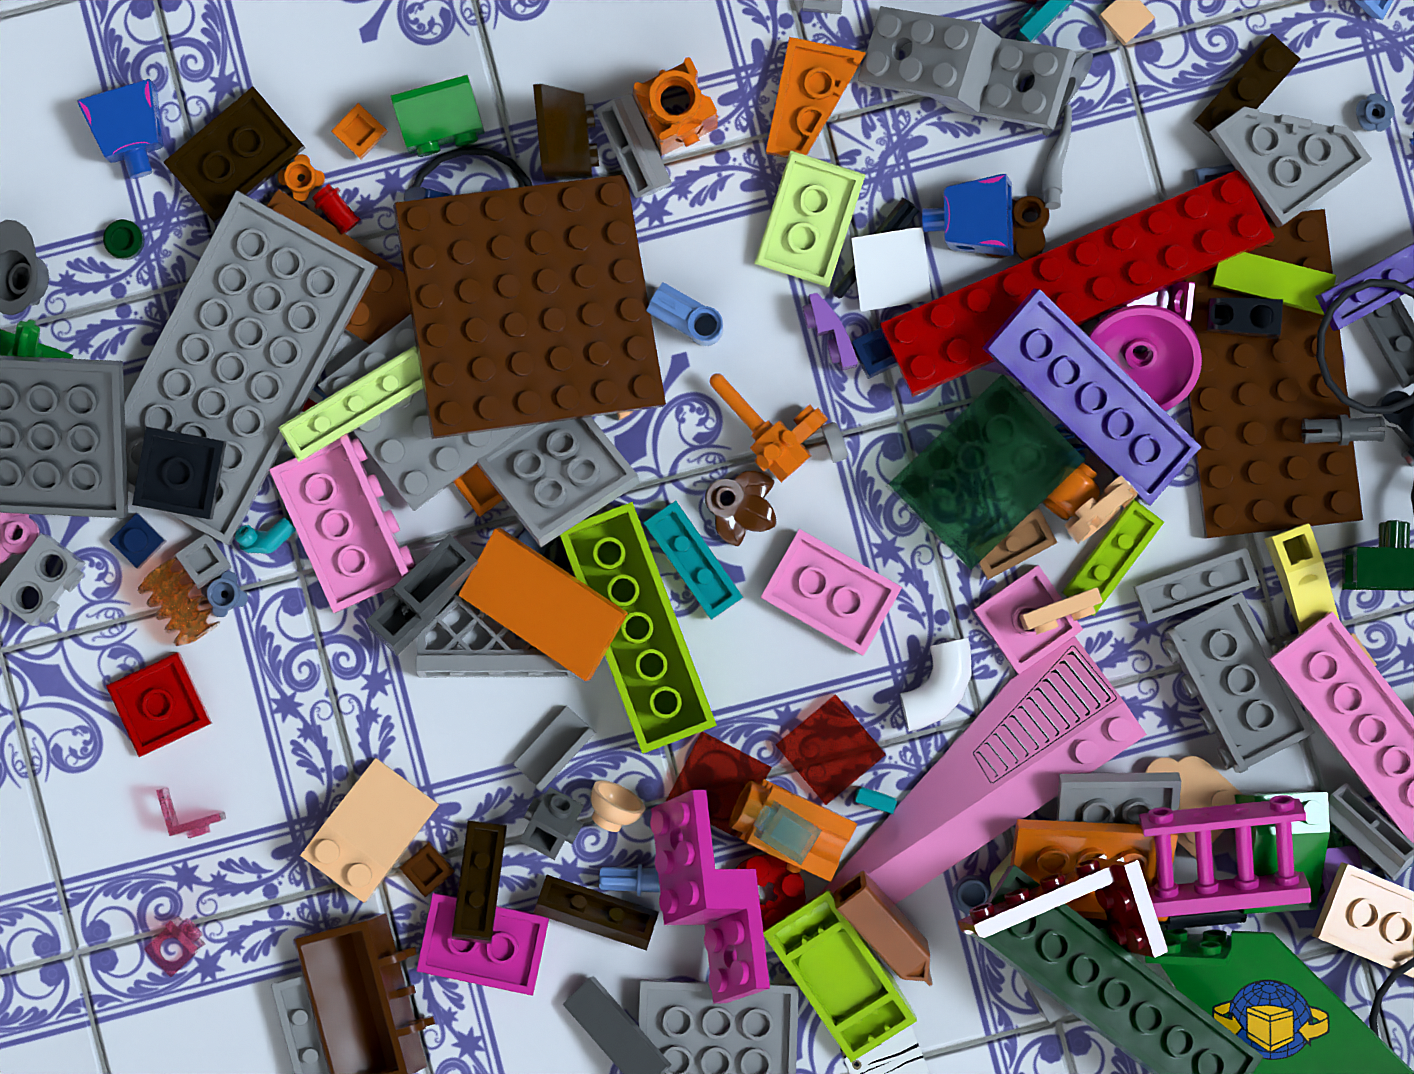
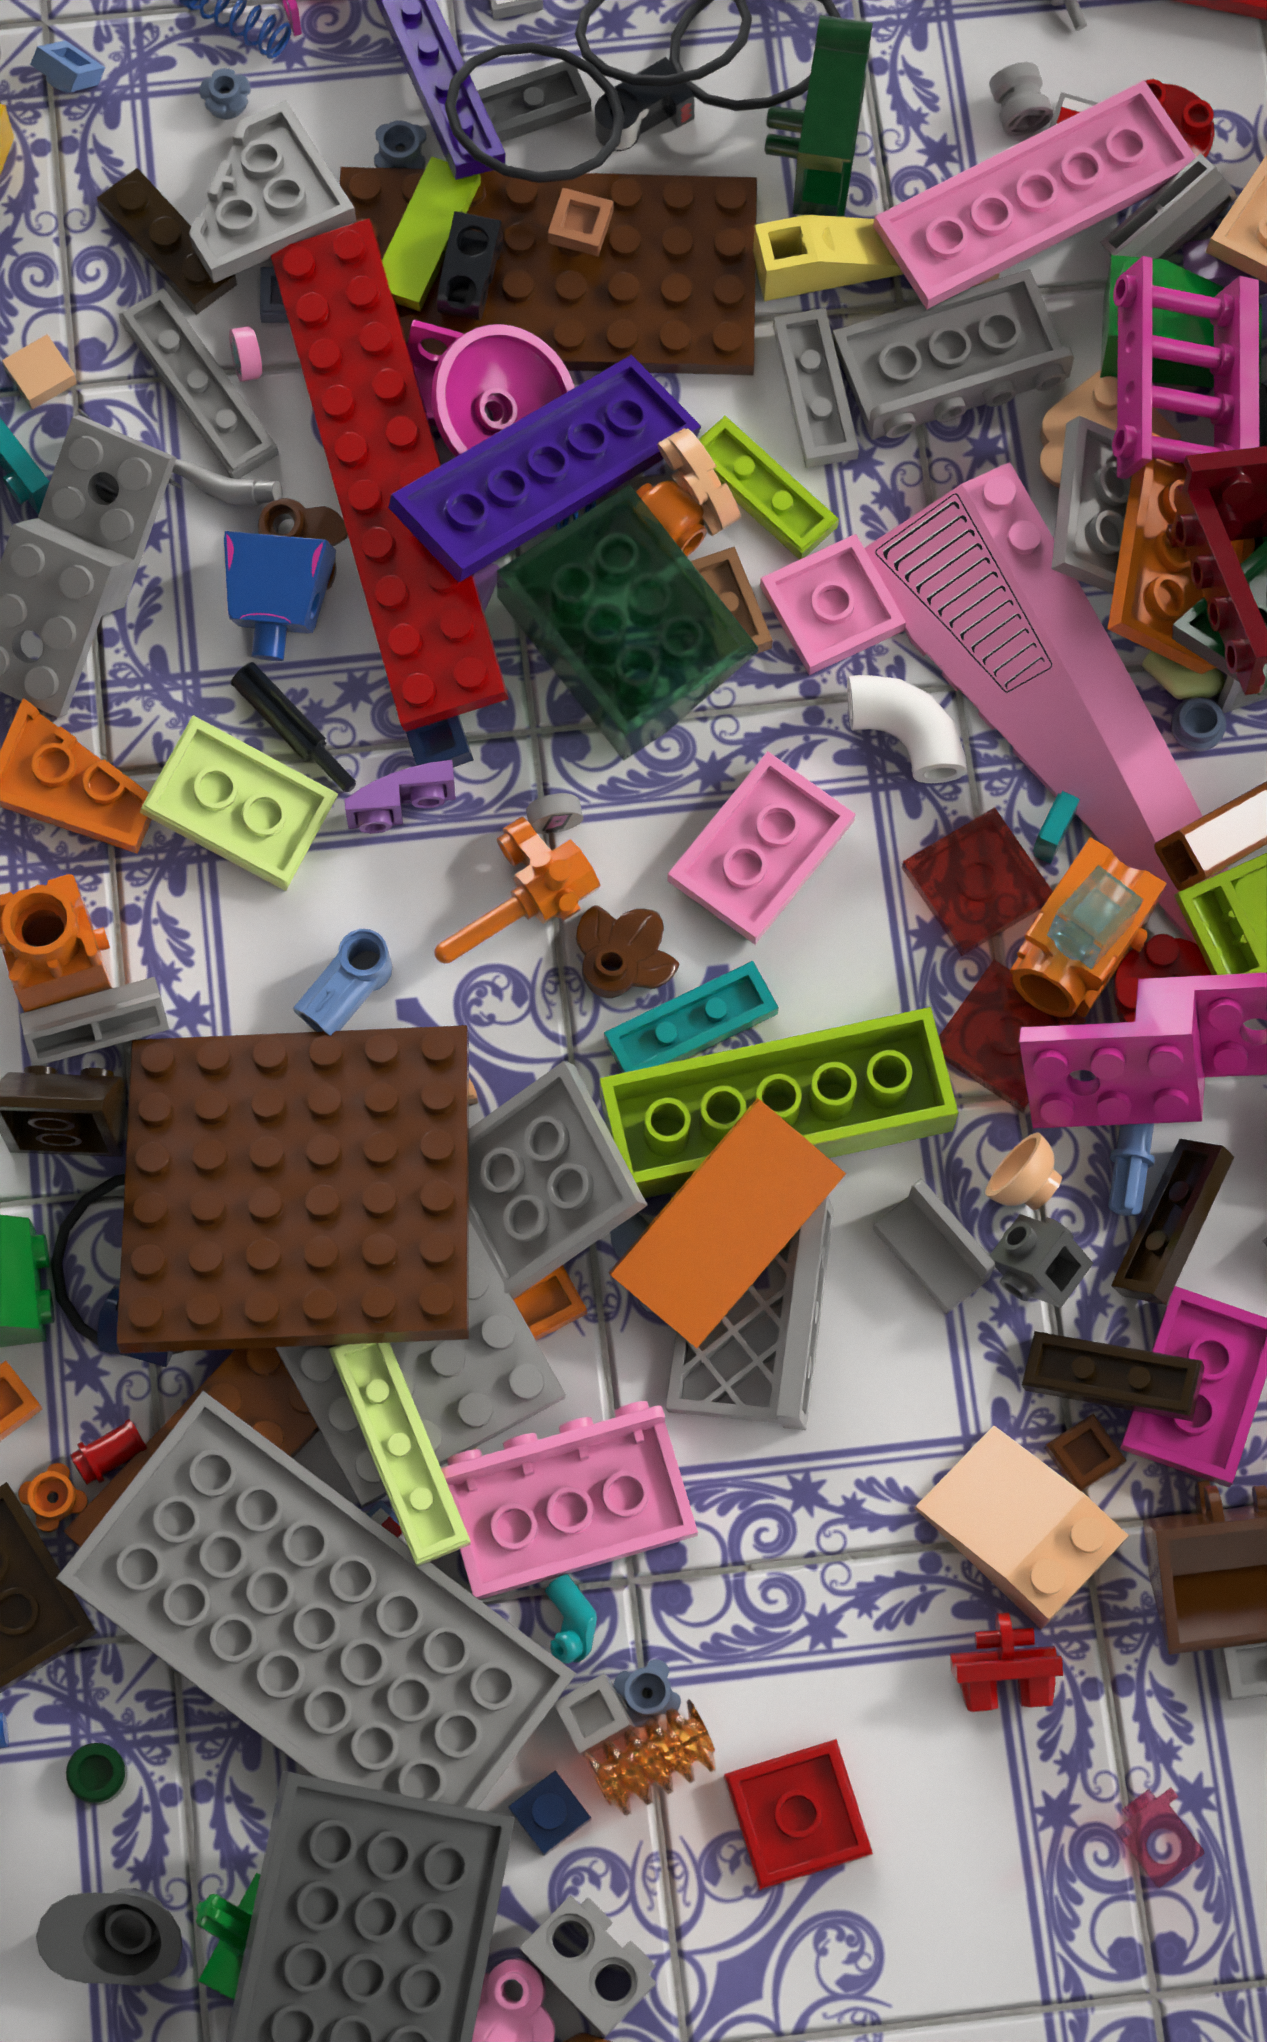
camera: 75 degrees left, 15 degrees down
(179, 473) = (460, 1722): black plate -> none
(192, 828) = (987, 1781): clear pink bracket -> none
(275, 830) = (1032, 1667): none -> red hips
(421, 595) = (690, 1397): dark grey slope -> none
(891, 268) = (327, 708): white sticker -> none
(1046, 617) = (823, 528): light nougat plate -> none
(1134, 134) = (198, 384): none -> light grey tile
(1160, 164) = (245, 353): none -> bright pink tile
(1297, 393) = (580, 222): none -> nougat plate
(1343, 430) = (636, 176): dark grey pin -> none
(1355, 240) = (400, 134): none -> sand blue plate

